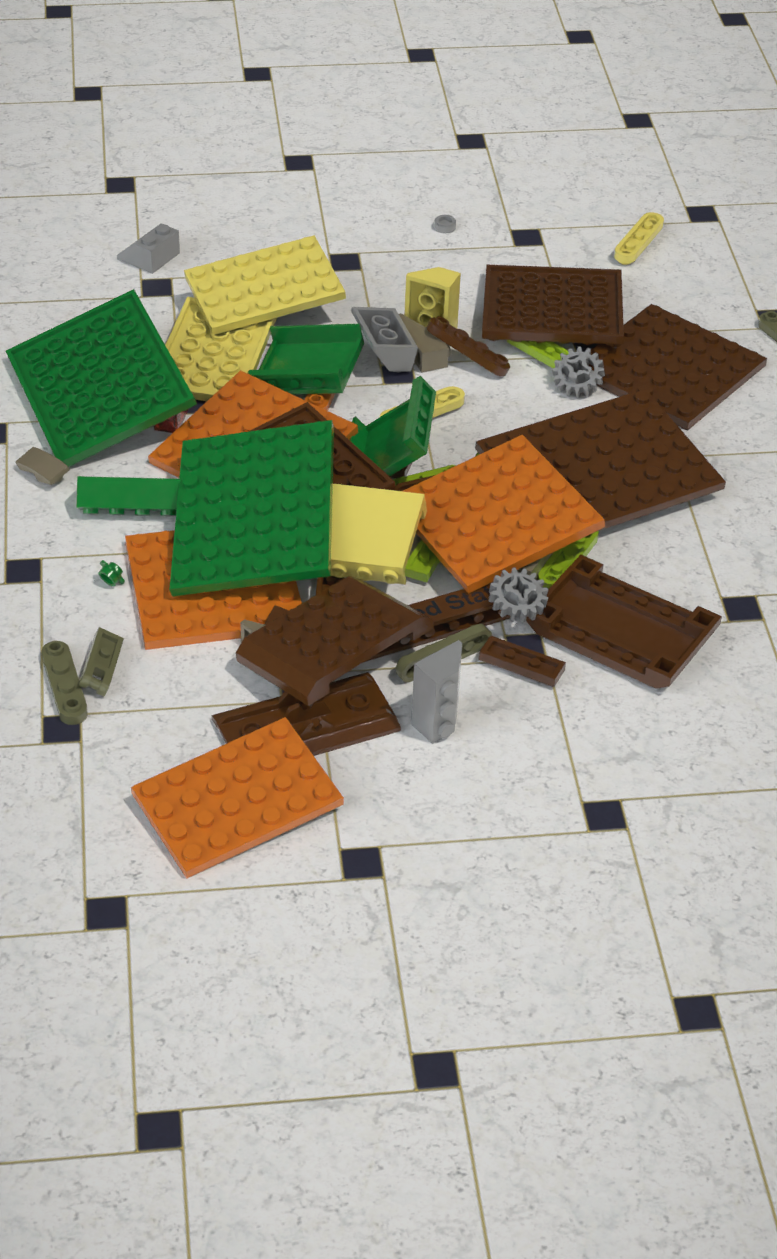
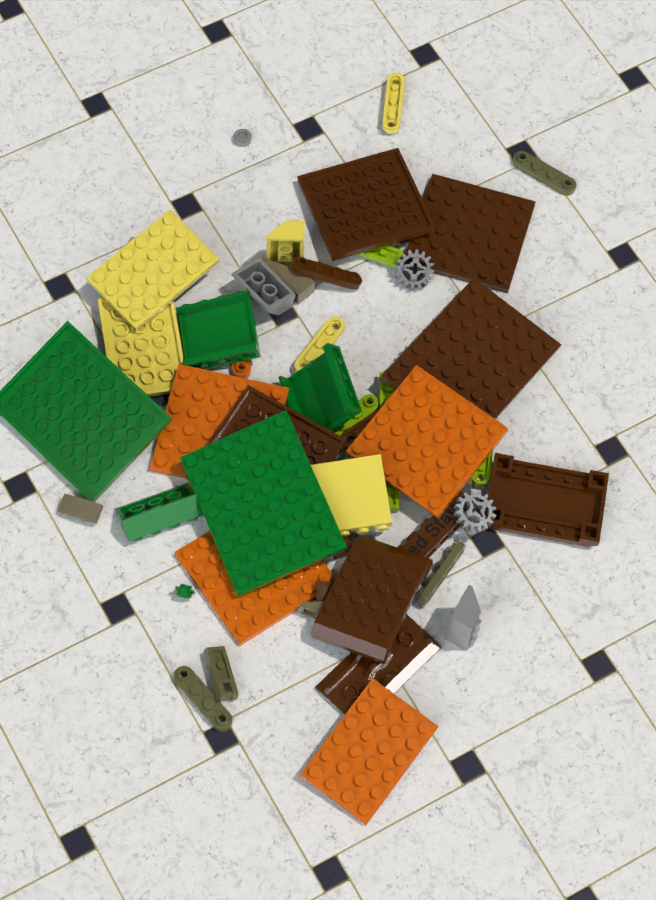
camera: 25 degrees left, 20 degrees up
(153, 249) = (36, 250): light grey slope -> none
(522, 661) = (494, 559): reddish brown plate -> none

